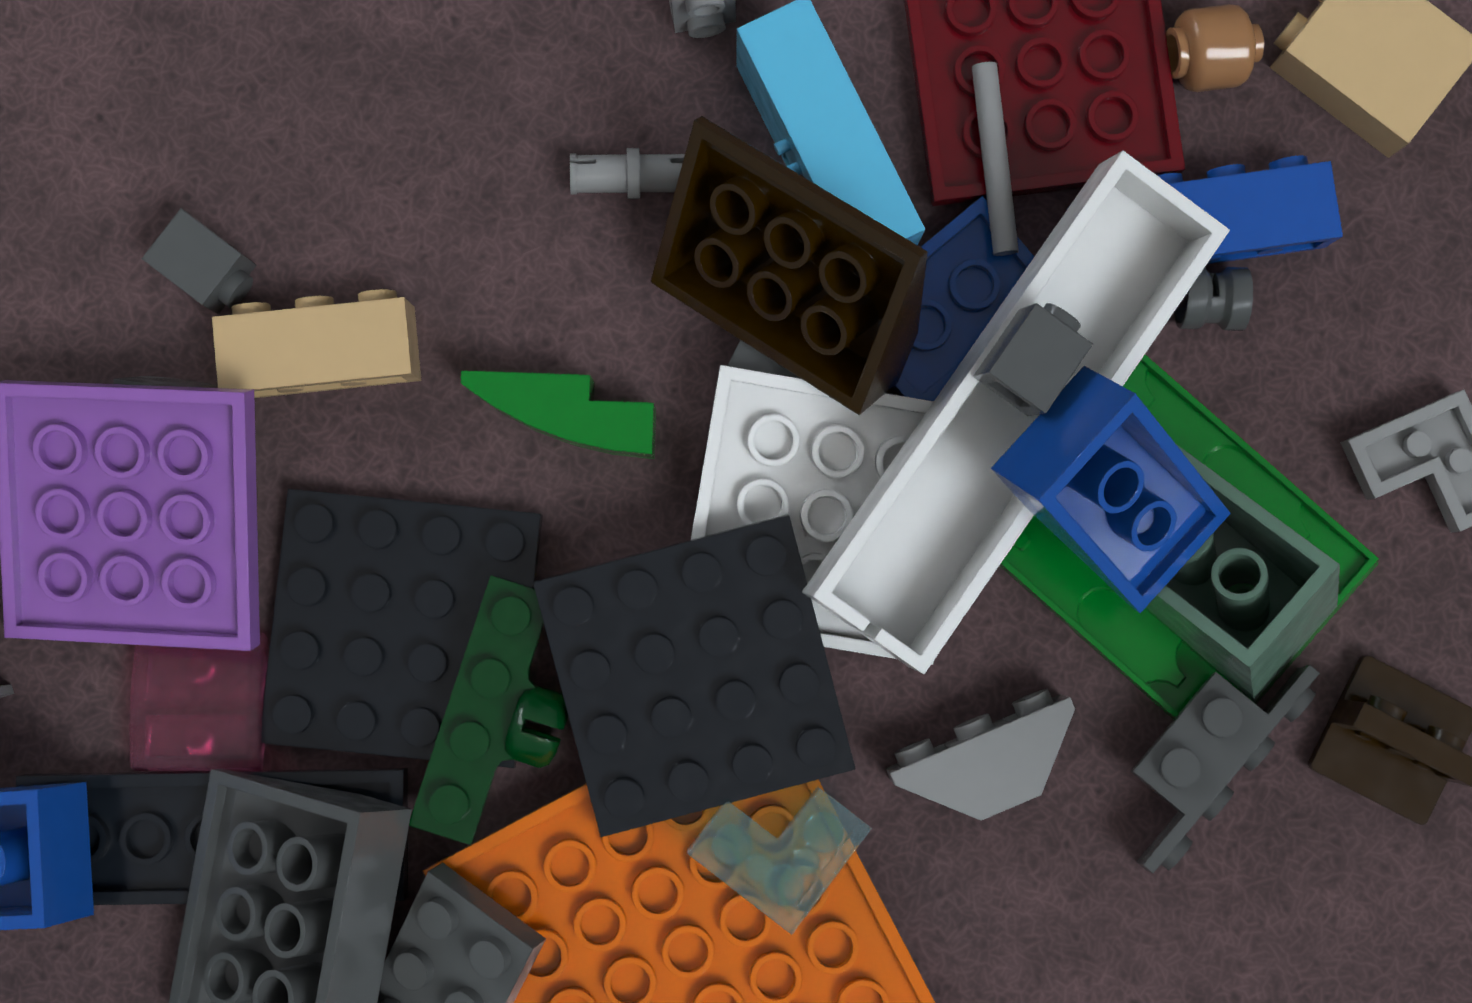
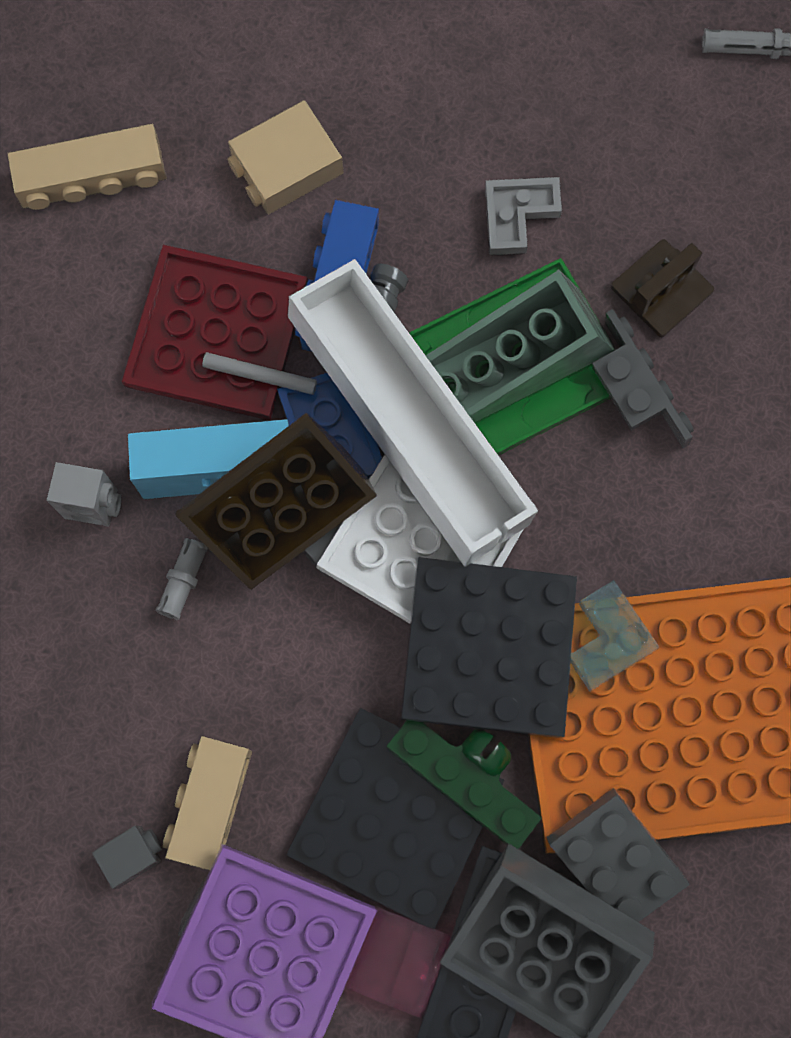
camera: 70 degrees left, 10 degrees down
(566, 410) = (306, 668): green slope -> none
(989, 762) = (599, 503): light grey slope -> none
(1034, 358) = (386, 382): dark grey brick -> none
(1112, 487) = (471, 369): blue slope -> none
(1213, 47) = (246, 237): medium nougat head -> none

